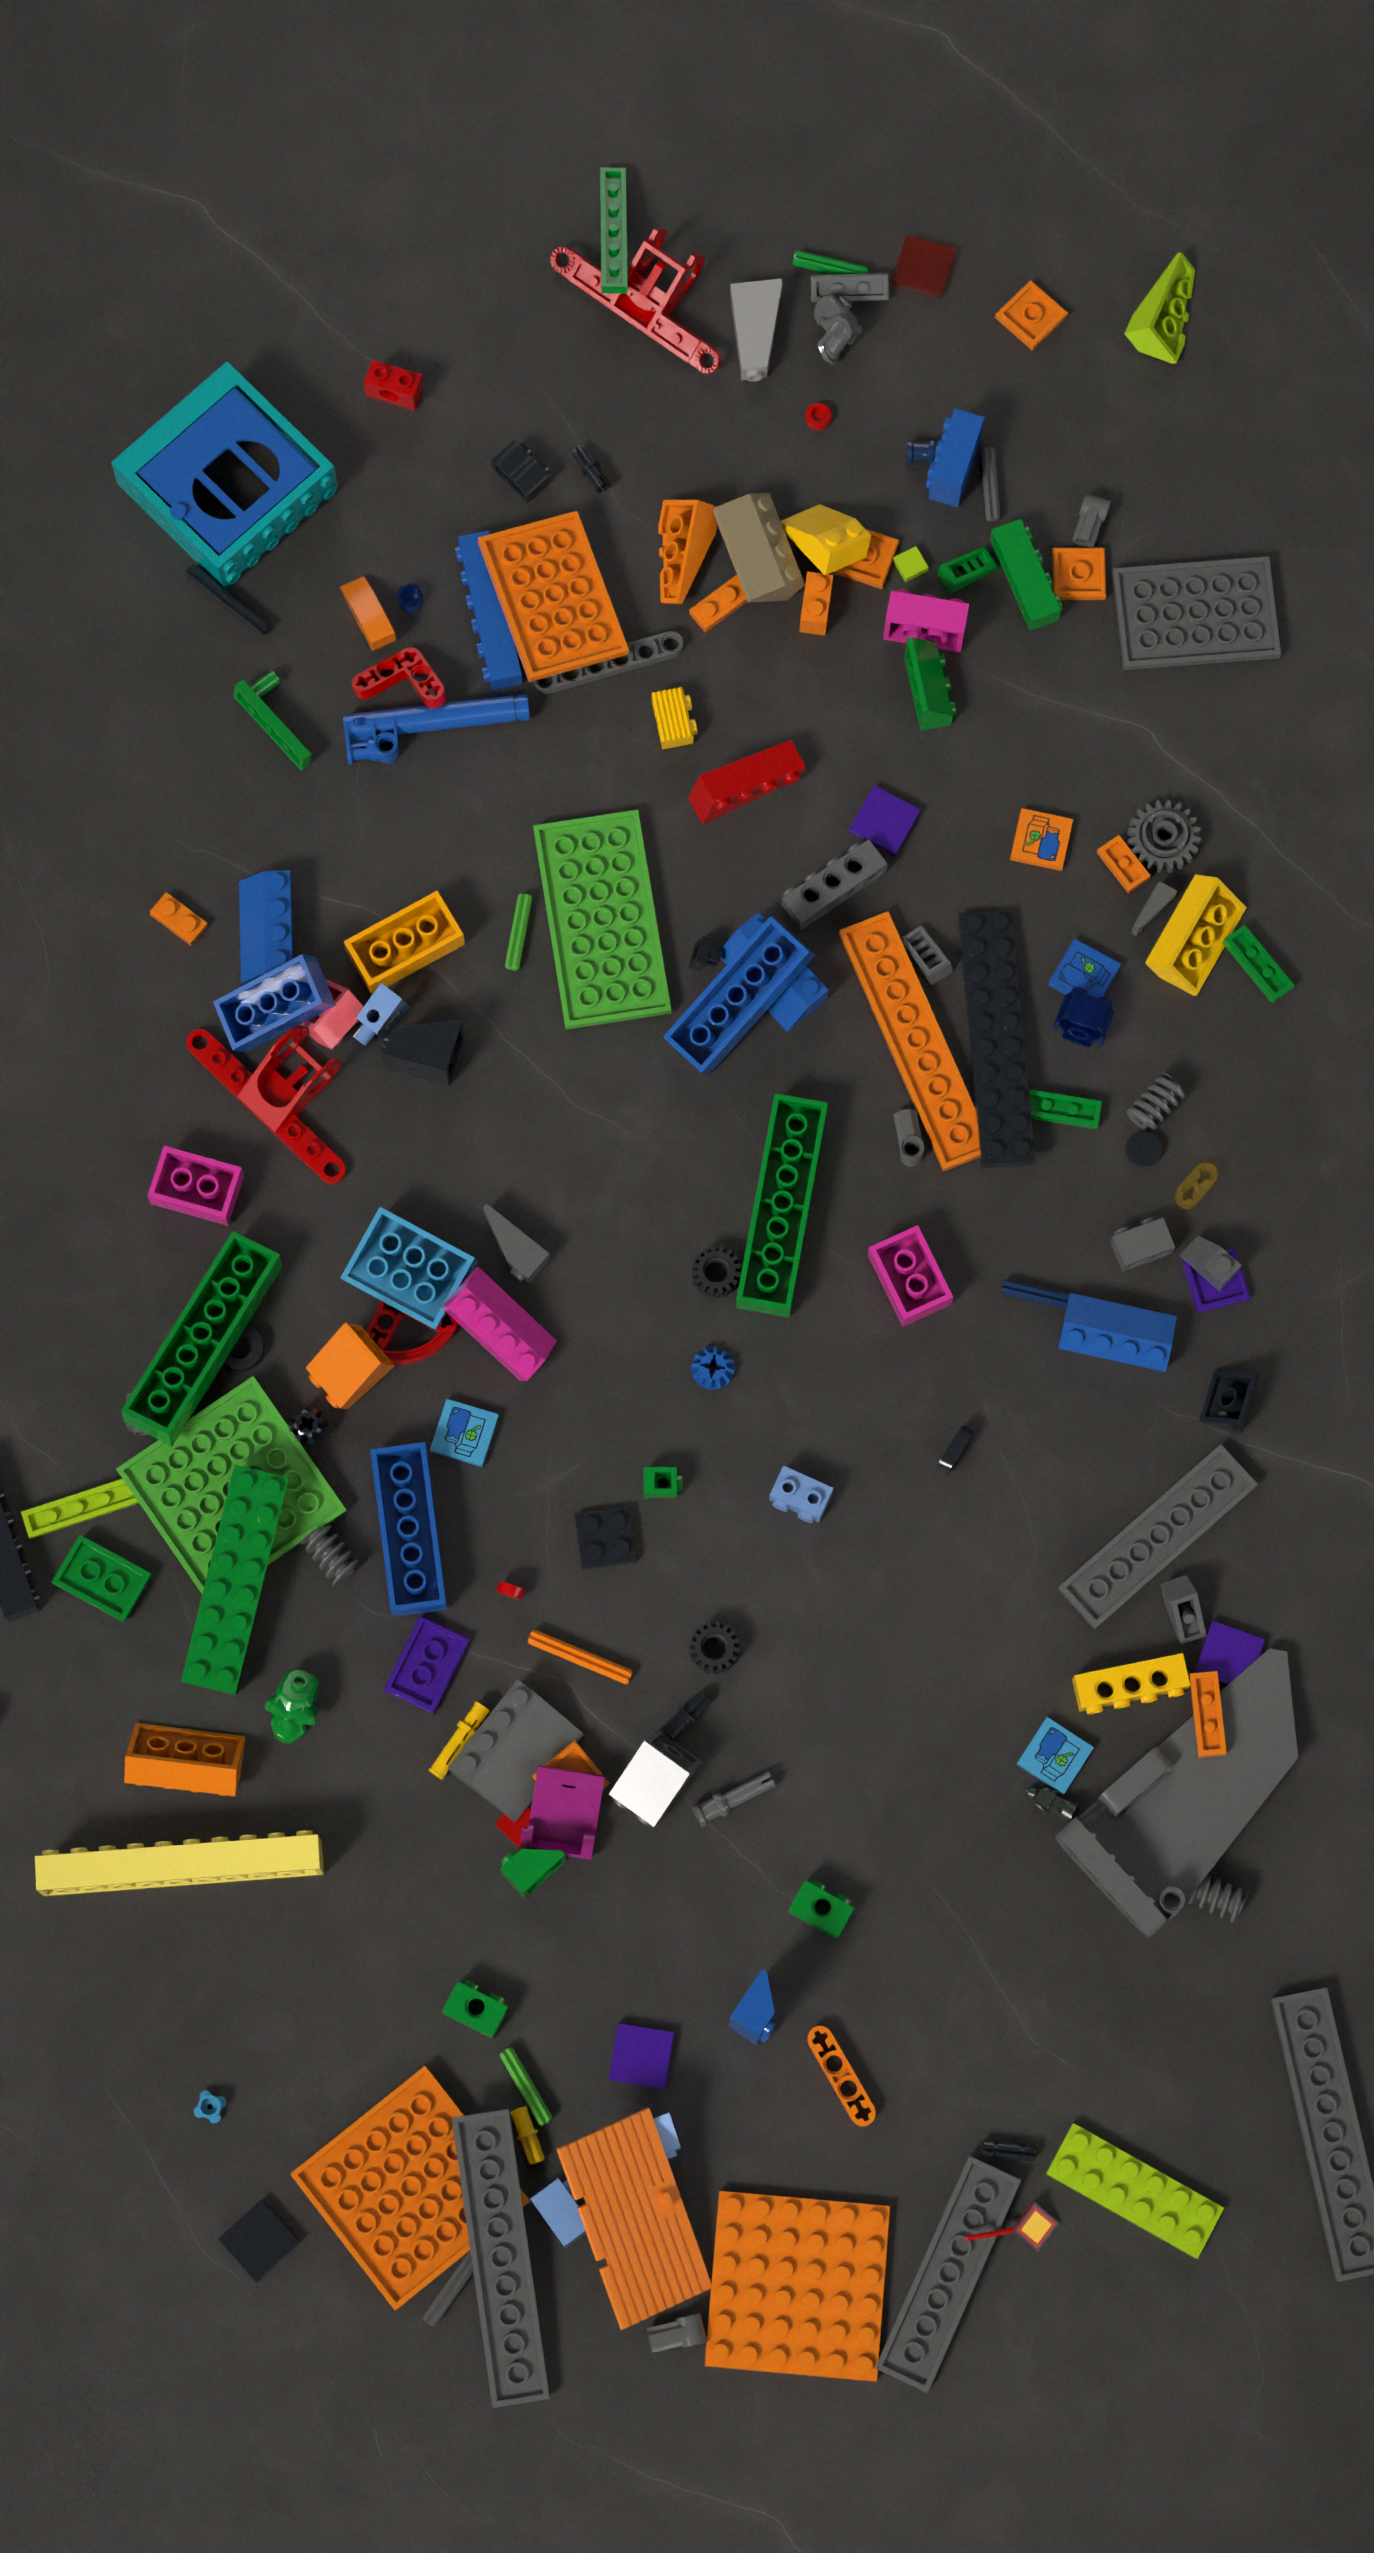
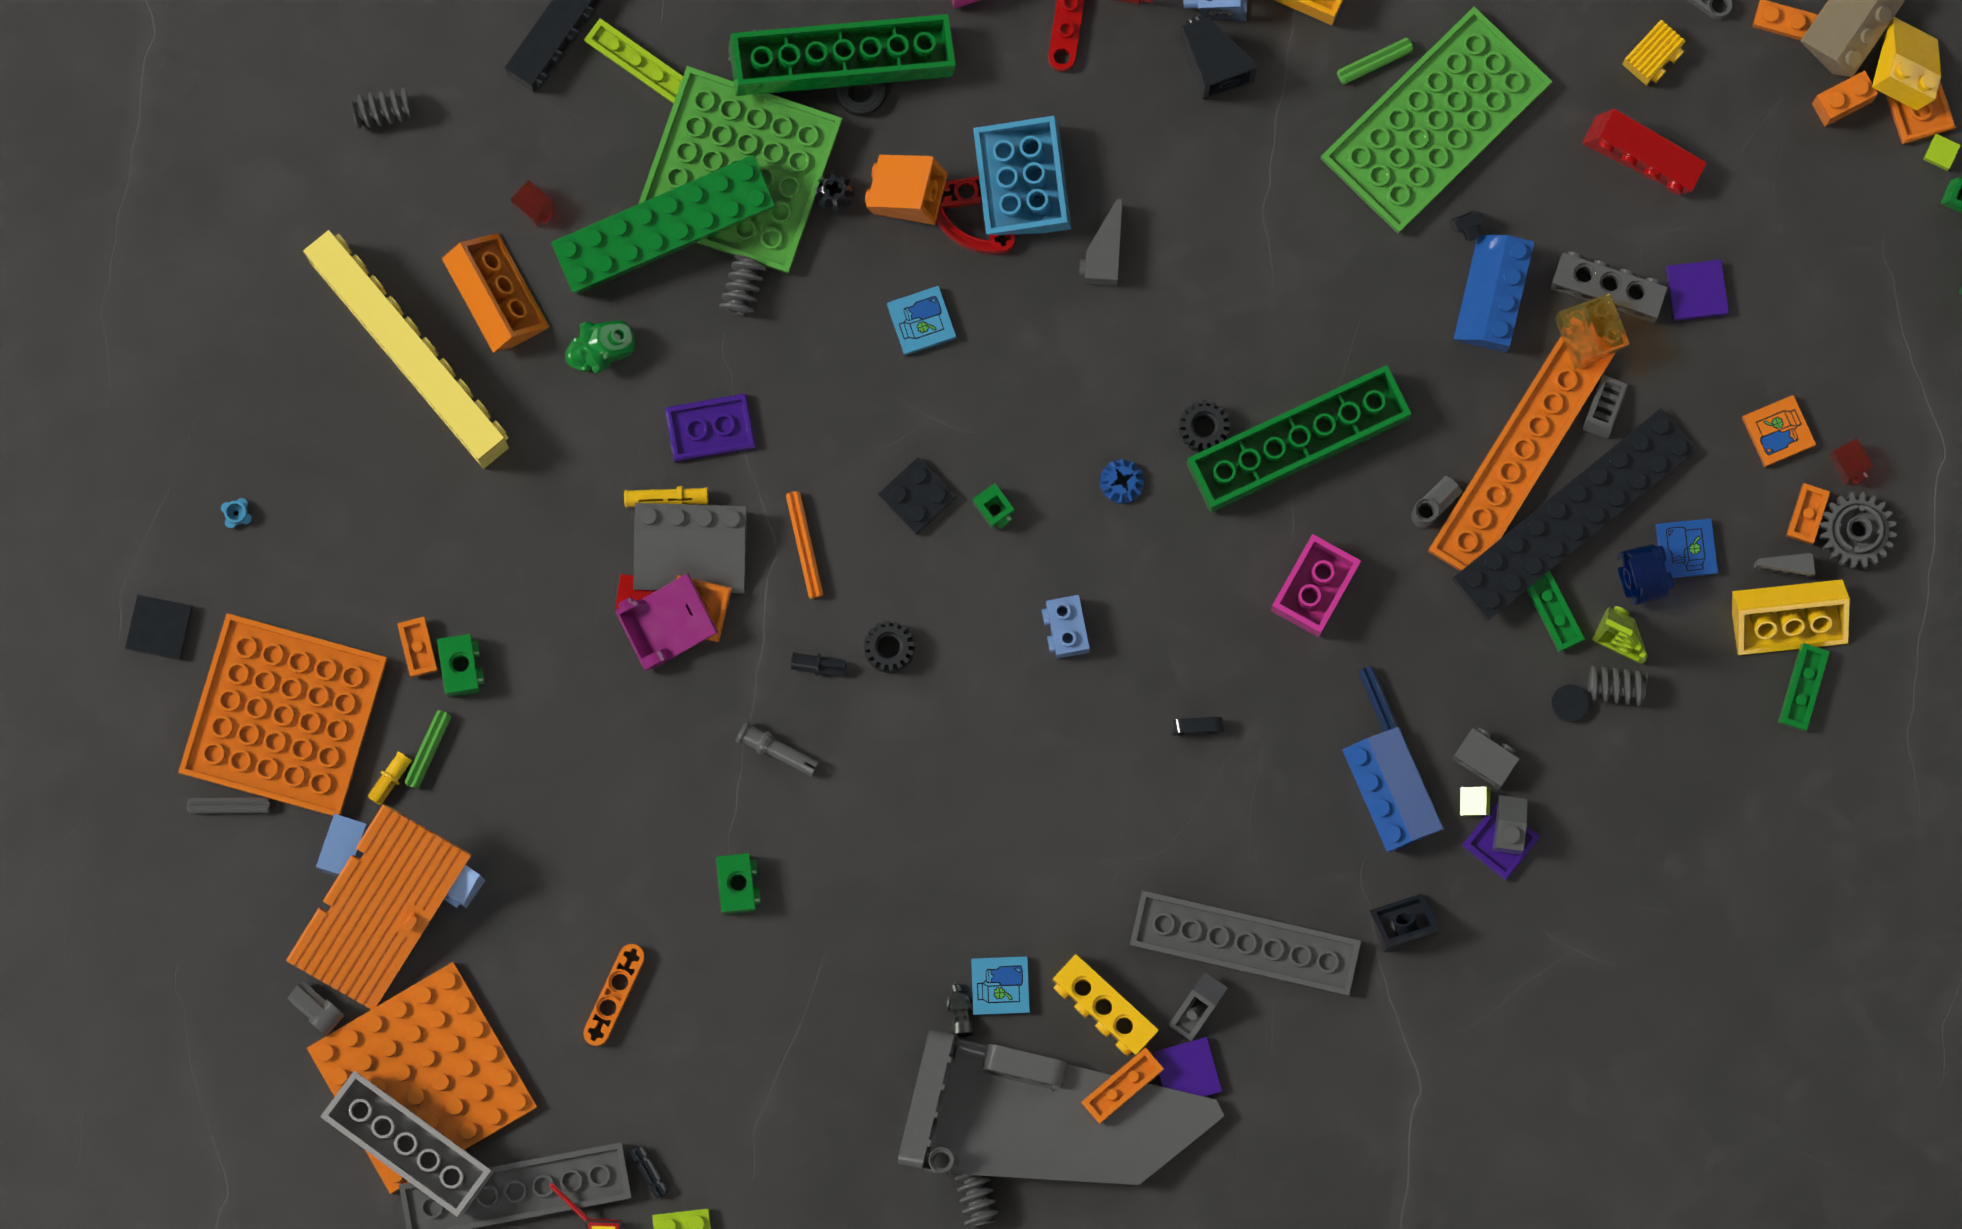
camera: 55 degrees right, 5 degrees up
(102, 1578) = (593, 121): green plate -> none
(134, 1675) = (533, 204): none -> clear red brick
(408, 1529) = (807, 332): blue brick -> none
(434, 2034) = (417, 647): none -> orange plate
(500, 1325) = (1029, 283): dark pink slope -> none
(500, 2258) = (276, 824): dark grey plate -> none
(510, 1590) = (817, 450): red tile -> none
(530, 1868) = (599, 627): green slope -> none
(641, 2056) = (516, 823): dark purple tile -> none
(655, 1778) = (748, 674): slope -> none
(739, 995) = (1448, 276): blue brick -> none
(755, 2012) = (610, 885): blue slope -> none
(849, 2334) = (407, 1144): none -> light grey brick
(862, 919) = (1592, 330): none -> clear yellow slope
(926, 619) = (1897, 199): dark pink brick -> none
(929, 684) = (1844, 241): green slope -> none
(1107, 802) = (1851, 462): none -> clear red brick
(1118, 1070) = (1620, 633): none -> lime wedge
(1170, 1277) = (1475, 801): none -> tile
(1201, 1189) = (1570, 775): clear yellow beam -> none

